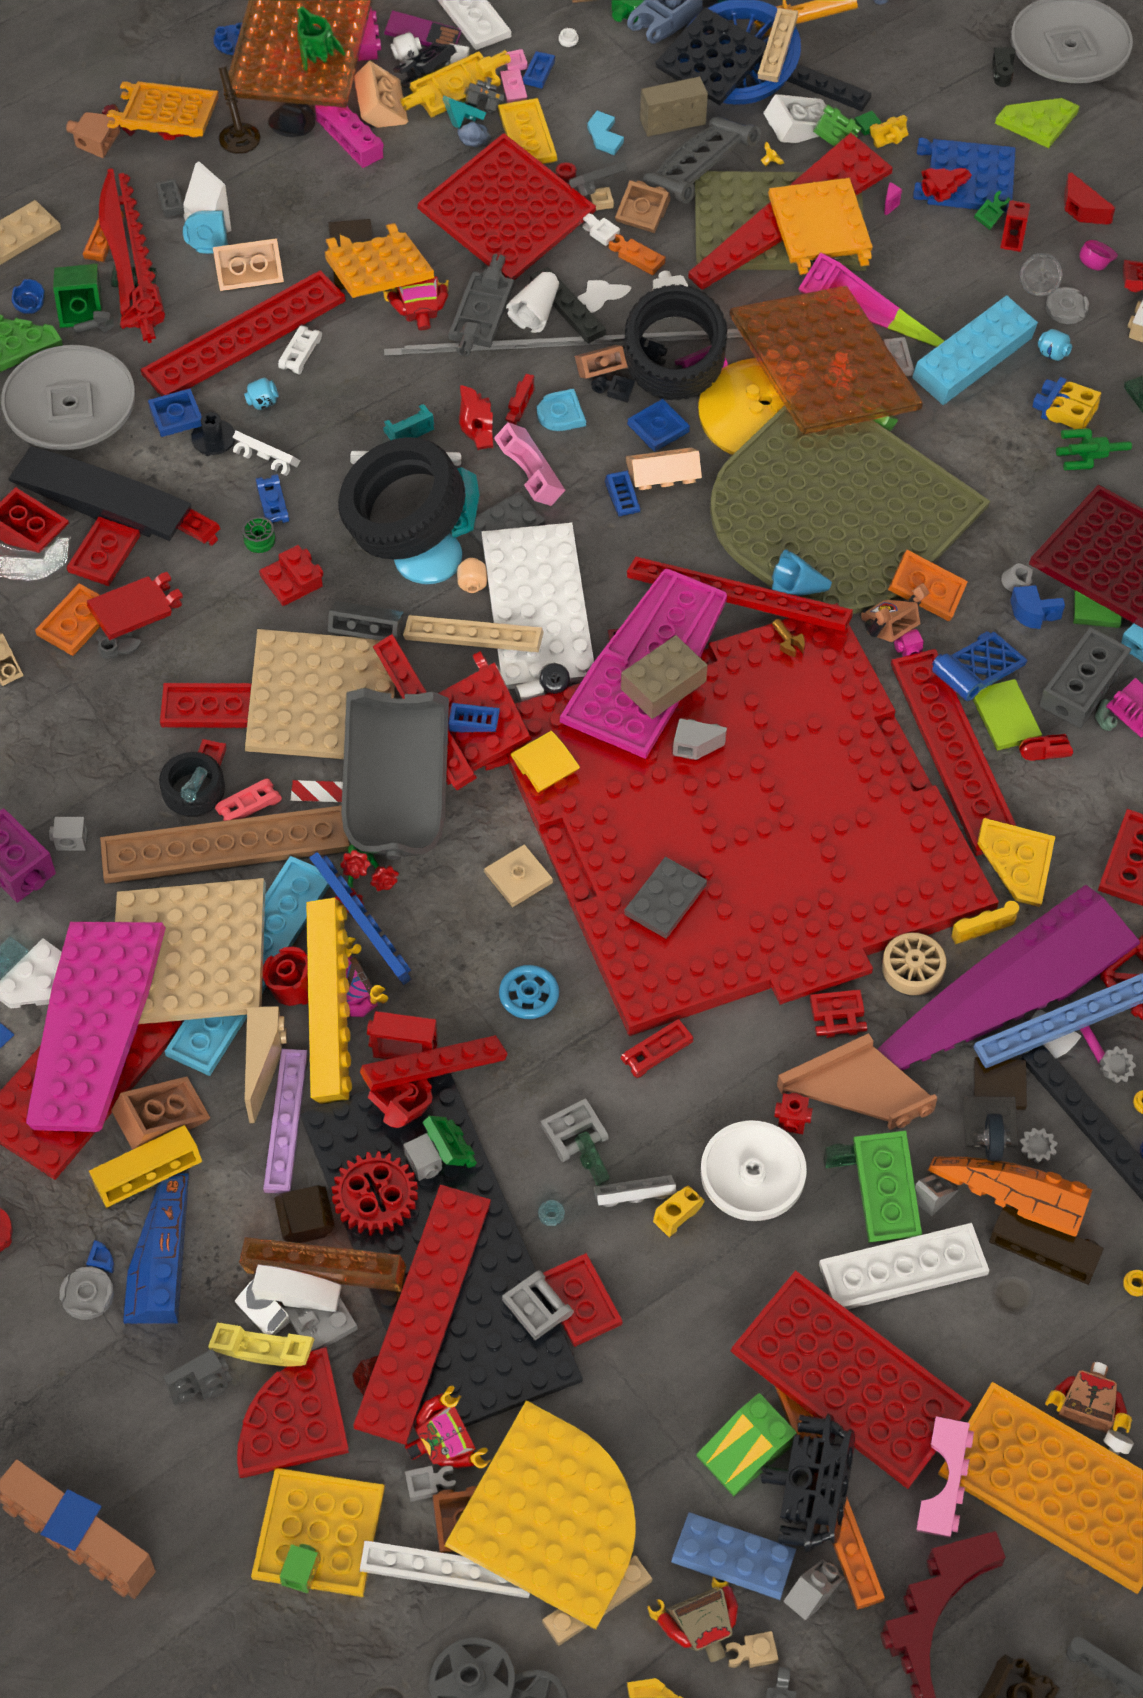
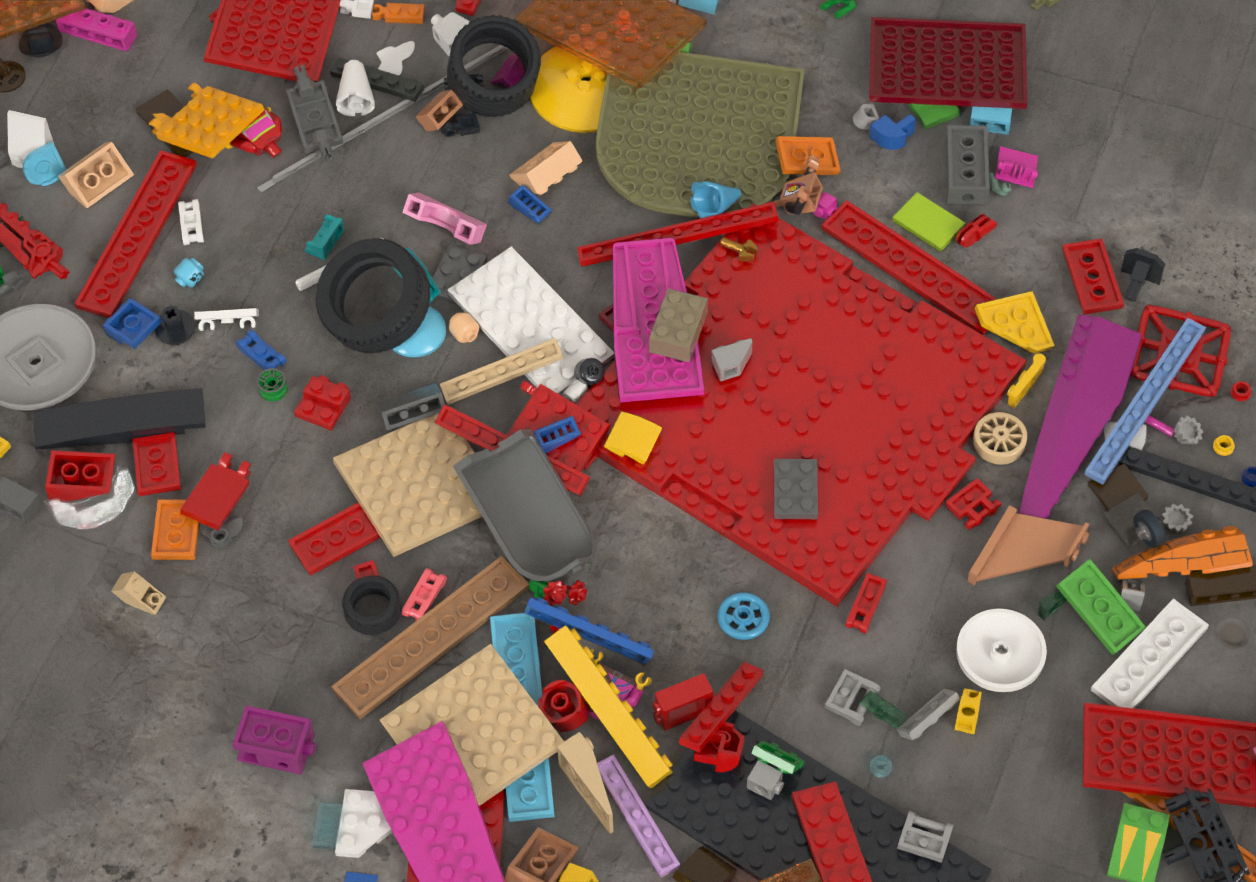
camera: 30 degrees left, 0 degrees up
(69, 833) = (303, 697): light grey brick -> none
(189, 790) = (381, 602): clear light blue arm -> none
(200, 527) = (222, 403): red plate -> none
(316, 791) = (473, 555): sticker -> none
(397, 1183) = (760, 811): red gear -> none
(476, 417) = (376, 203): red piece -> none
(518, 875) = (669, 535): tan plate -> none
(519, 403) = (398, 176): red plate -> none
(561, 411) = (433, 165): medium azure tile -> none
(583, 1290) = (948, 807): red plate -> none
(658, 425) = (517, 137): blue plate -> none
(793, 1113) = (997, 593): red brick -> none
(962, 676) = (882, 210): blue piece -> none

